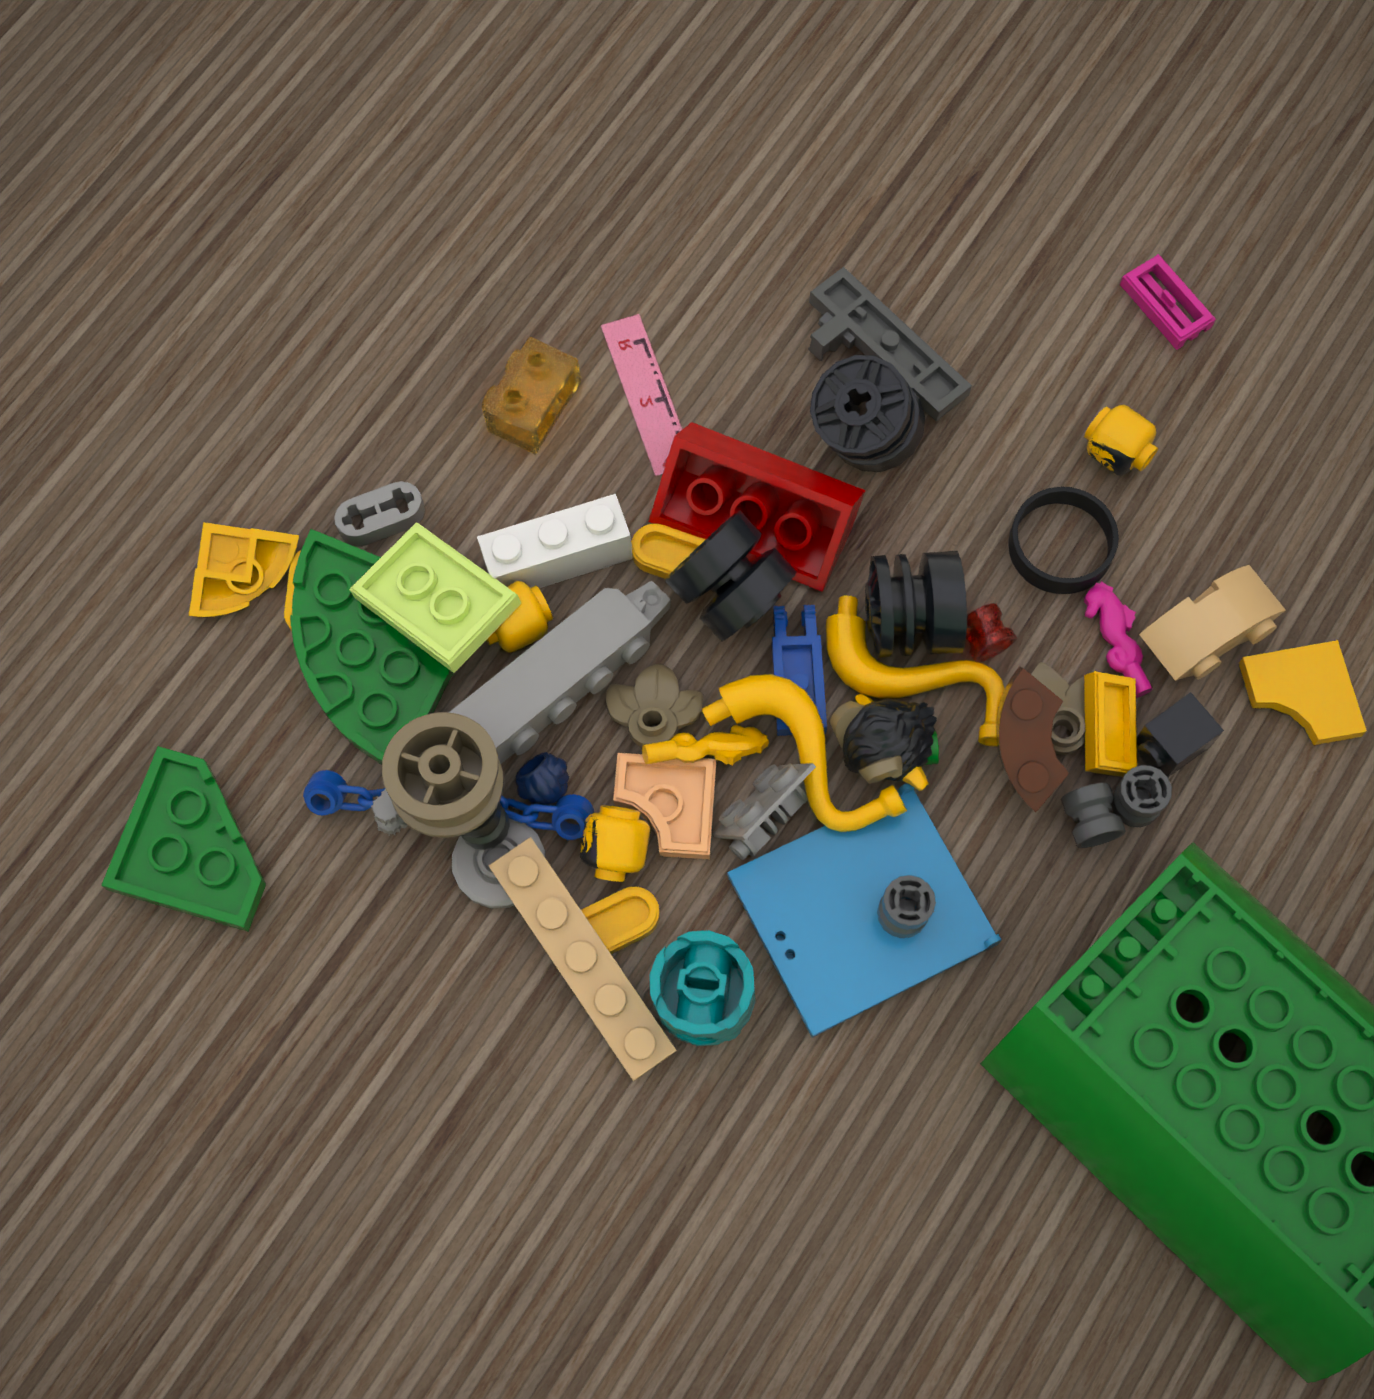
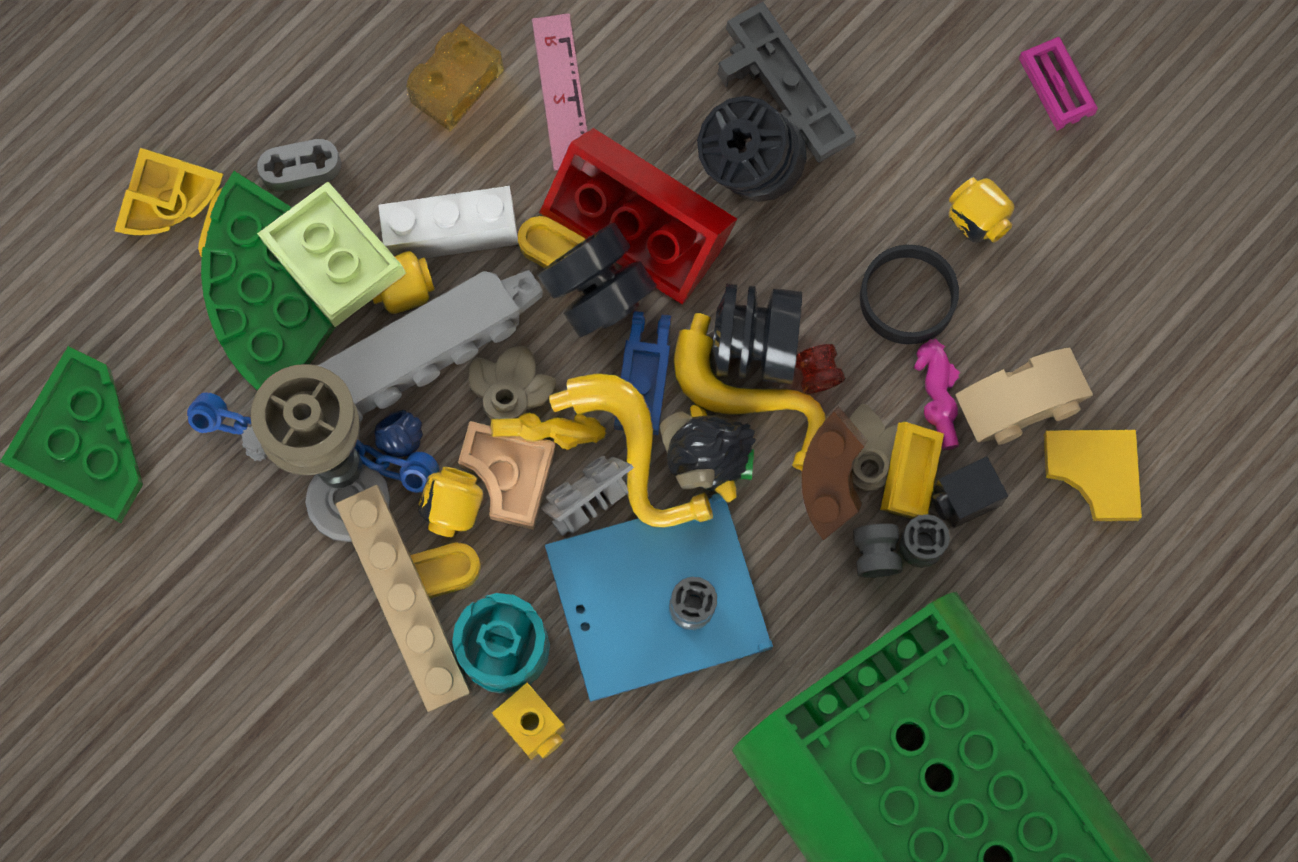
camera: 10 degrees right, 5 degrees up
(751, 1072) = (530, 722): none -> yellow brick

